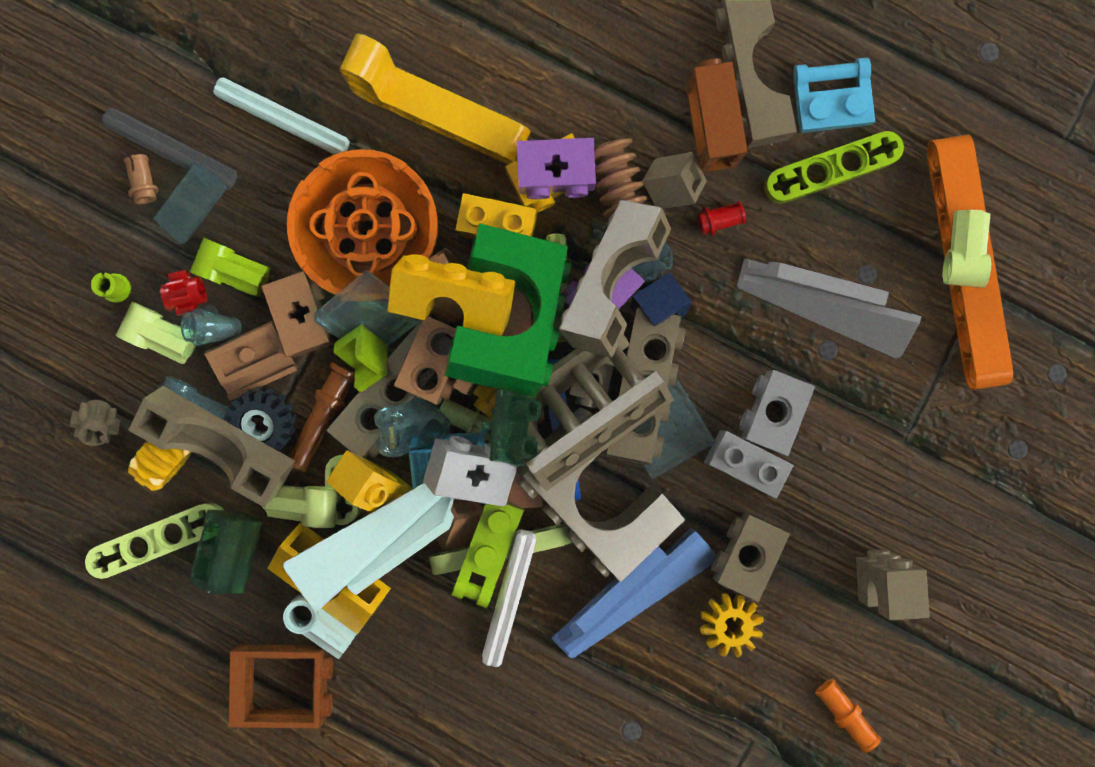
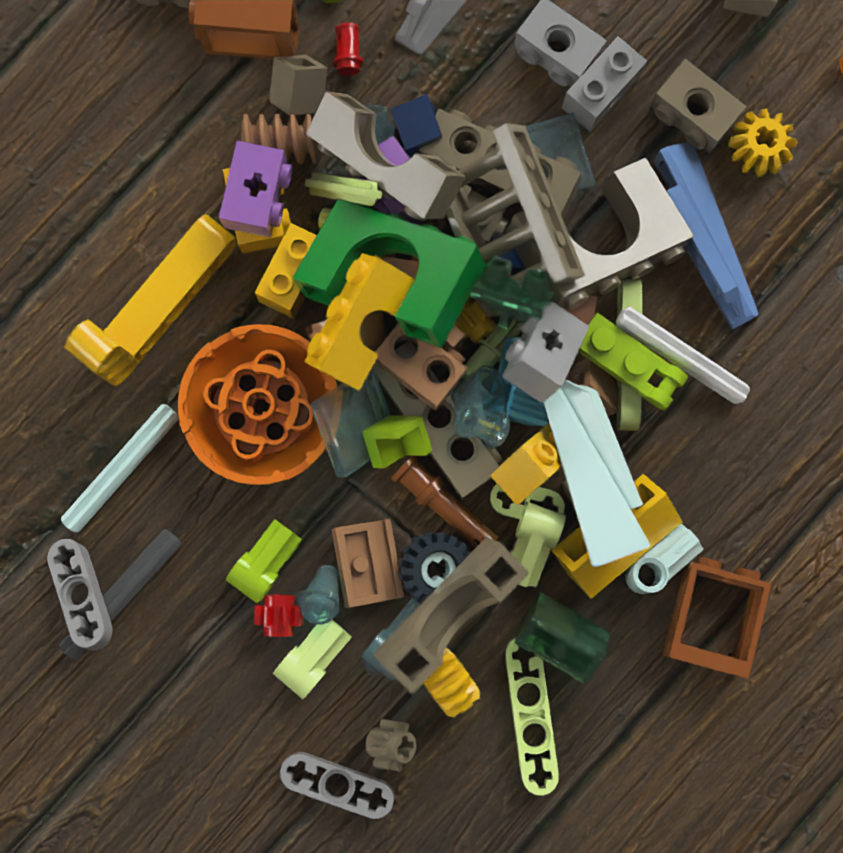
camera: 80 degrees left, 5 degrees down
(40, 373) = (369, 785): none -> light grey beam
(111, 286) = (260, 686): lime pin -> none
(140, 179) = (144, 632): medium nougat pin -> none
(160, 97) = (93, 606): none -> light grey beam
(190, 203) = (184, 585): clear light blue tile -> none
(284, 301) = (313, 511): medium nougat brick -> none
(580, 248) = (344, 188): none -> yellowish green axle

